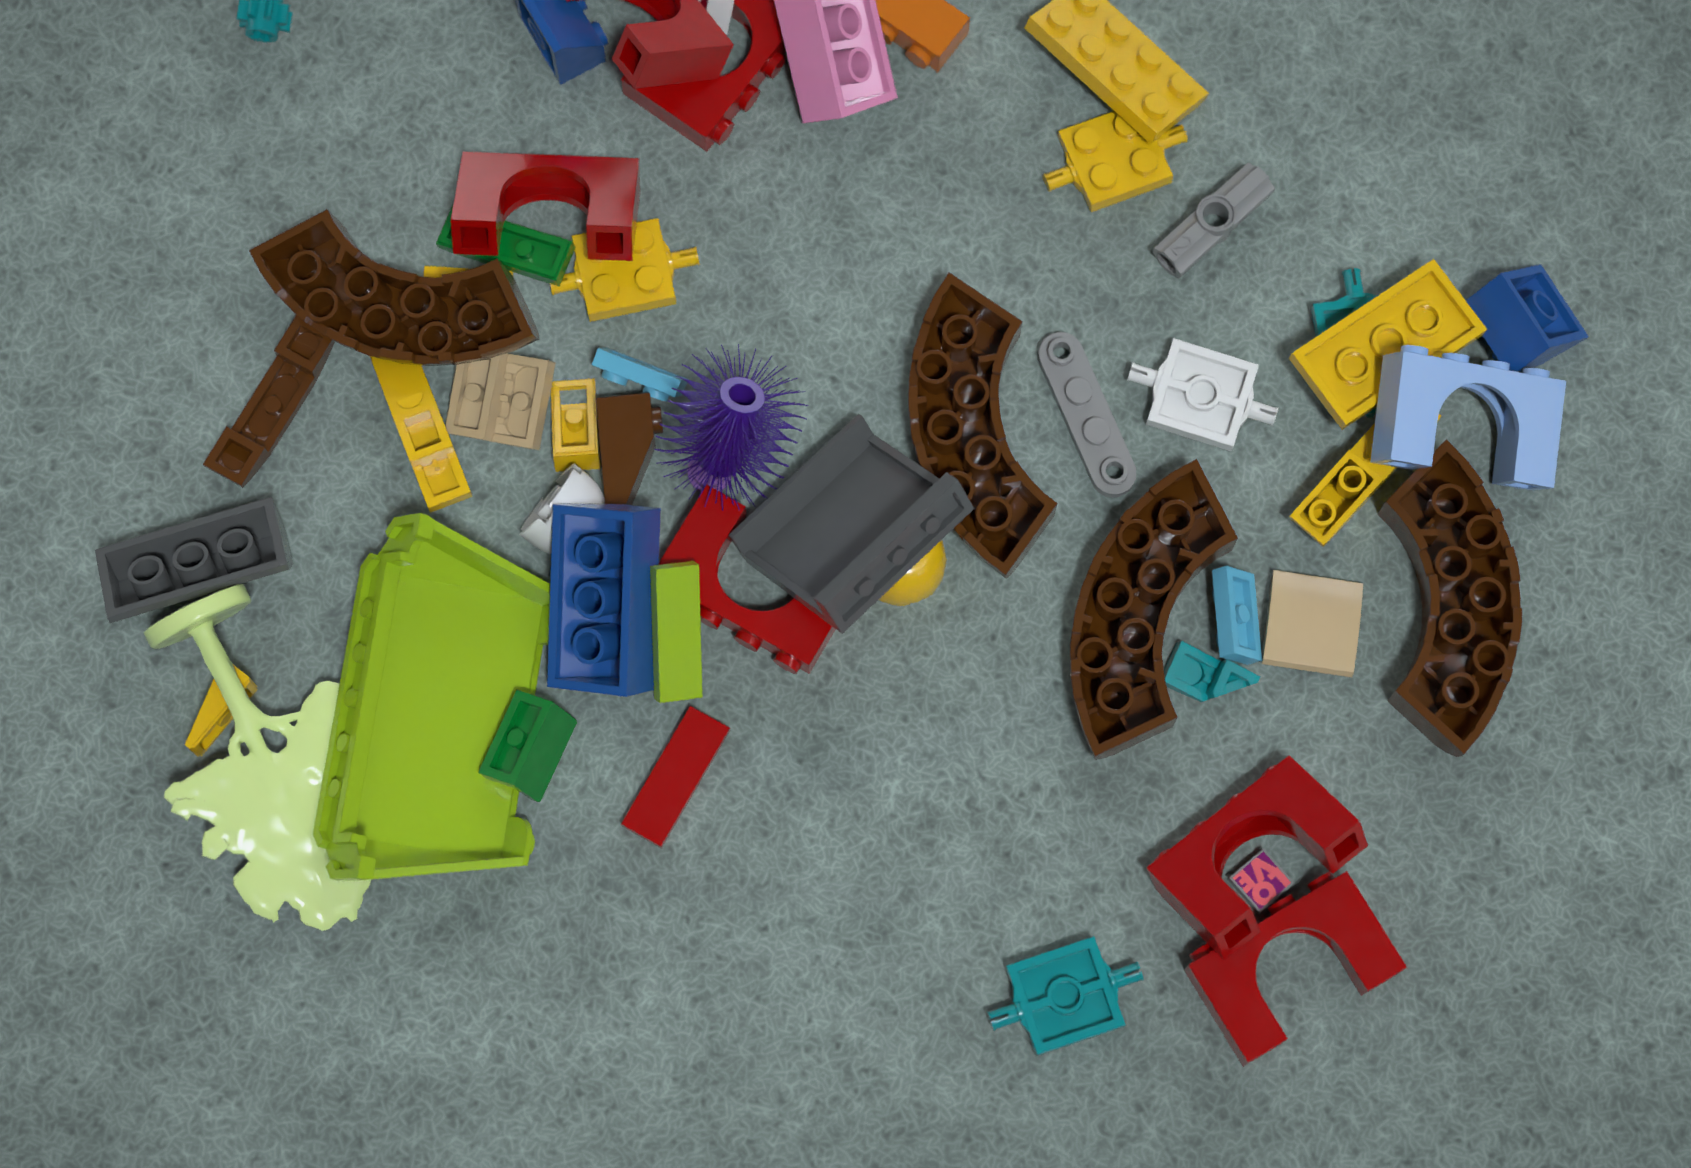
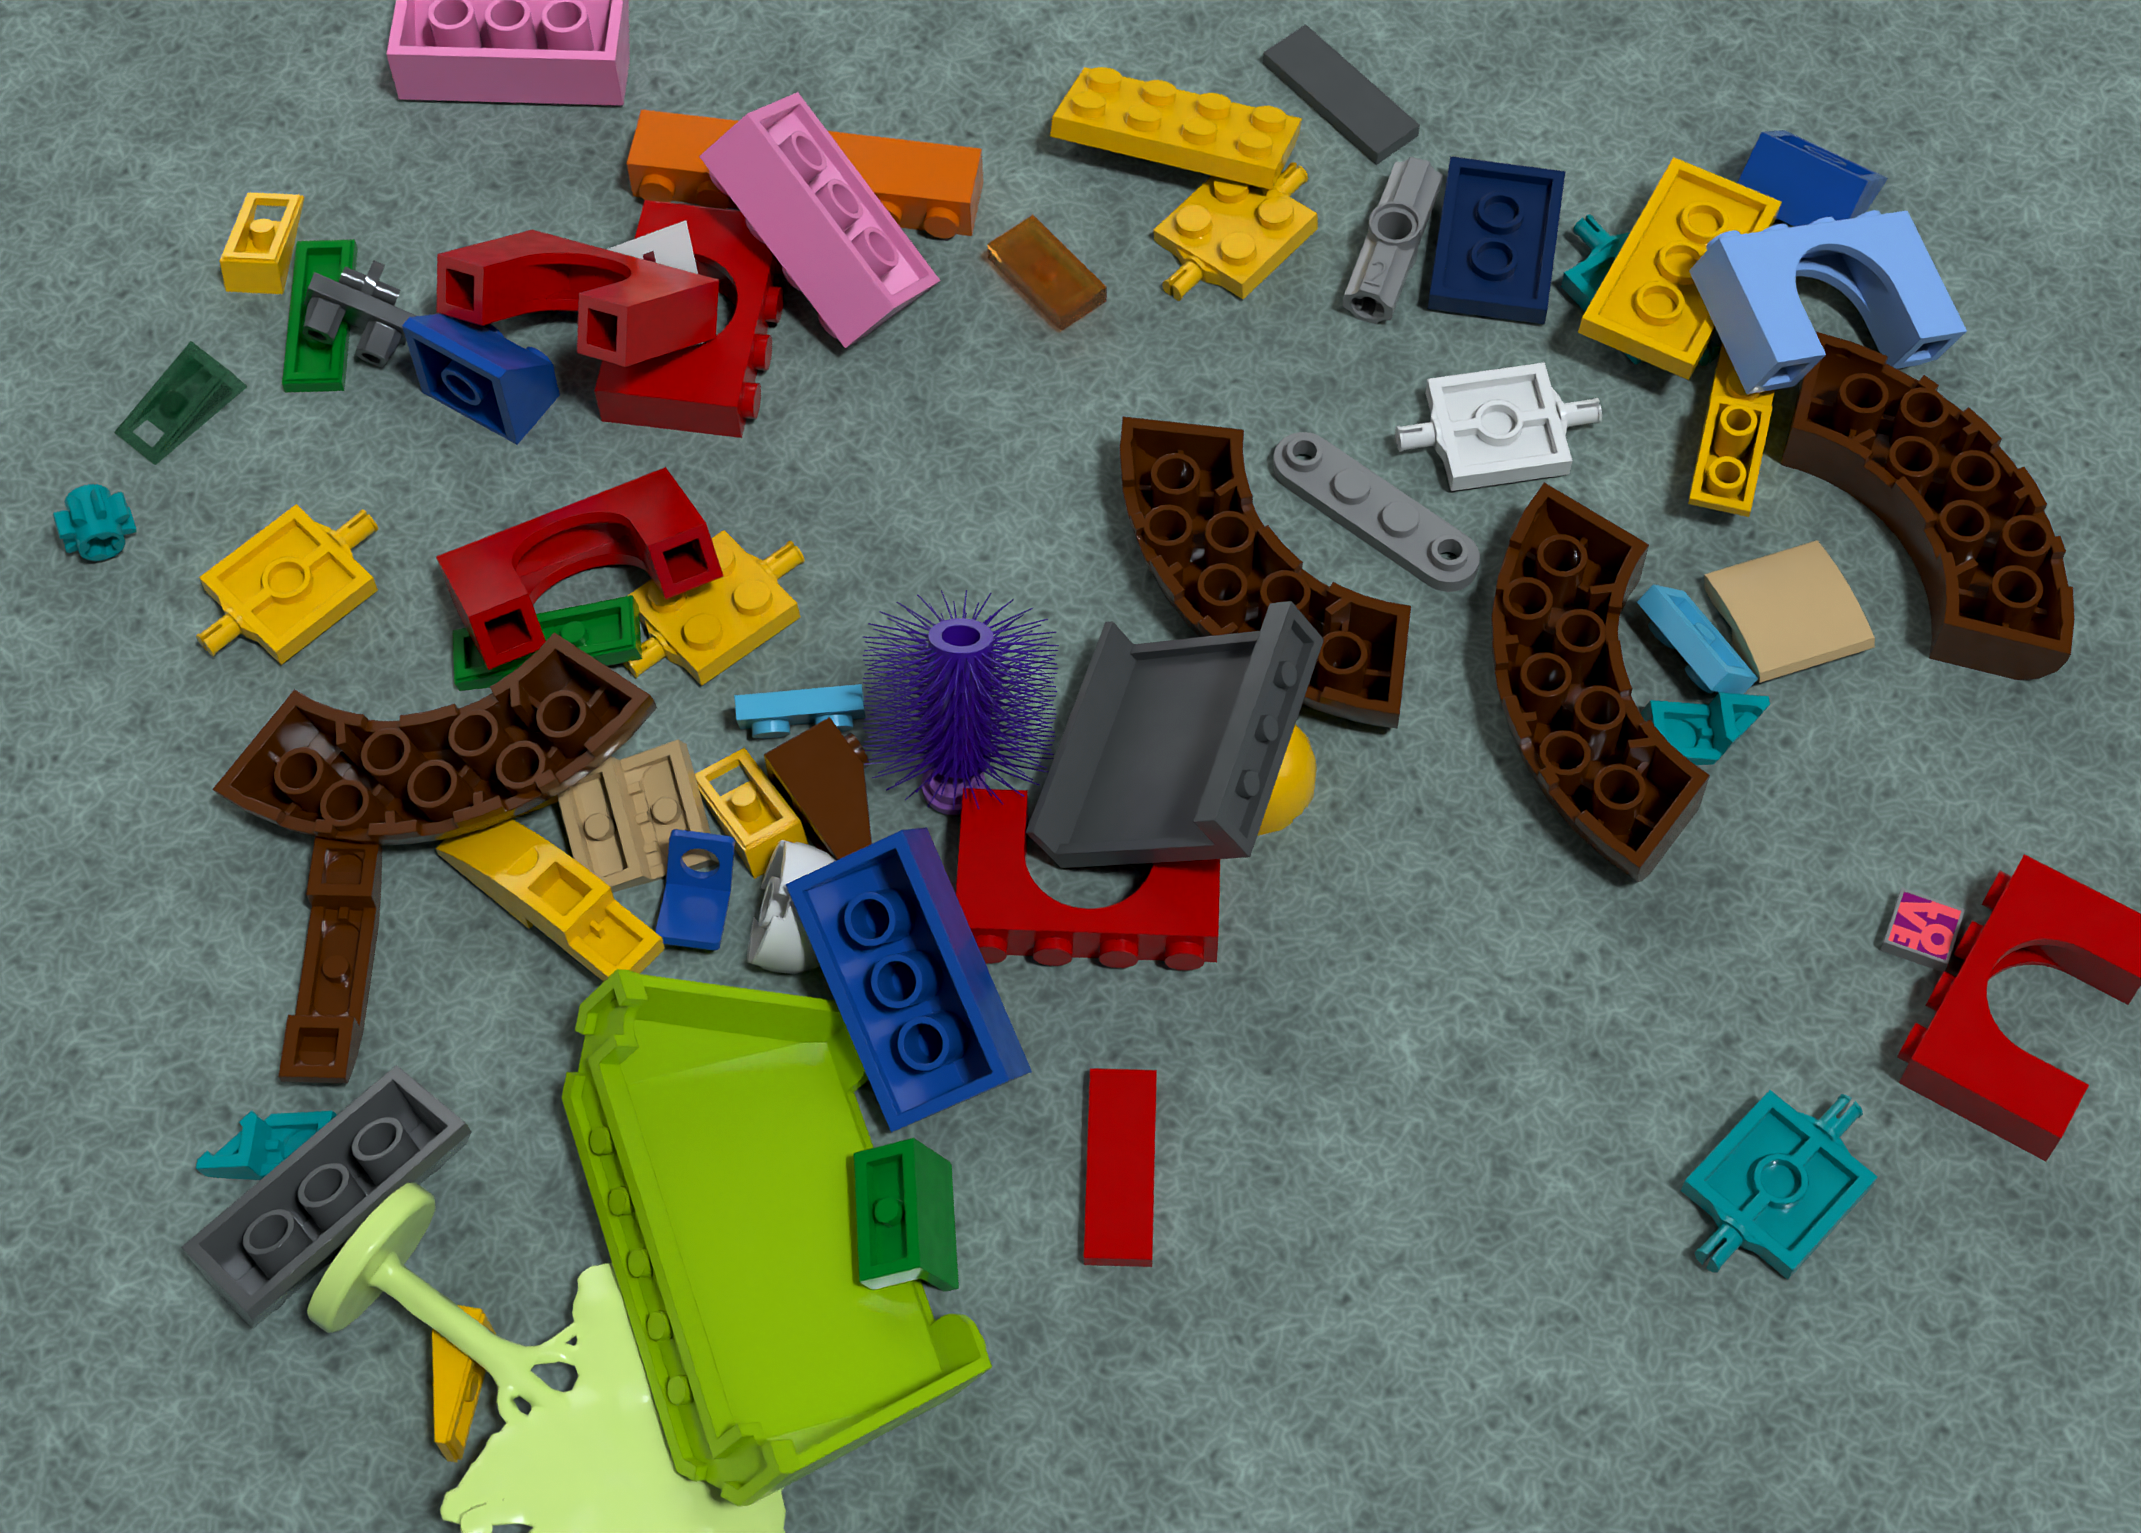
camera: 25 degrees left, 15 degrees down
(180, 501) = (262, 1144): none -> teal slope
(365, 119) = (288, 583): none -> yellow plate
(509, 469) = (696, 901): none -> blue bracket
(676, 631) = (1025, 978): lime tile -> none
(969, 129) = (1047, 272): none -> clear orange plate
(1248, 85) = (1341, 94): none -> dark grey tile
(1279, 803) = (1889, 821): red arch -> none
(1286, 253) = (1497, 240): none -> dark blue plate

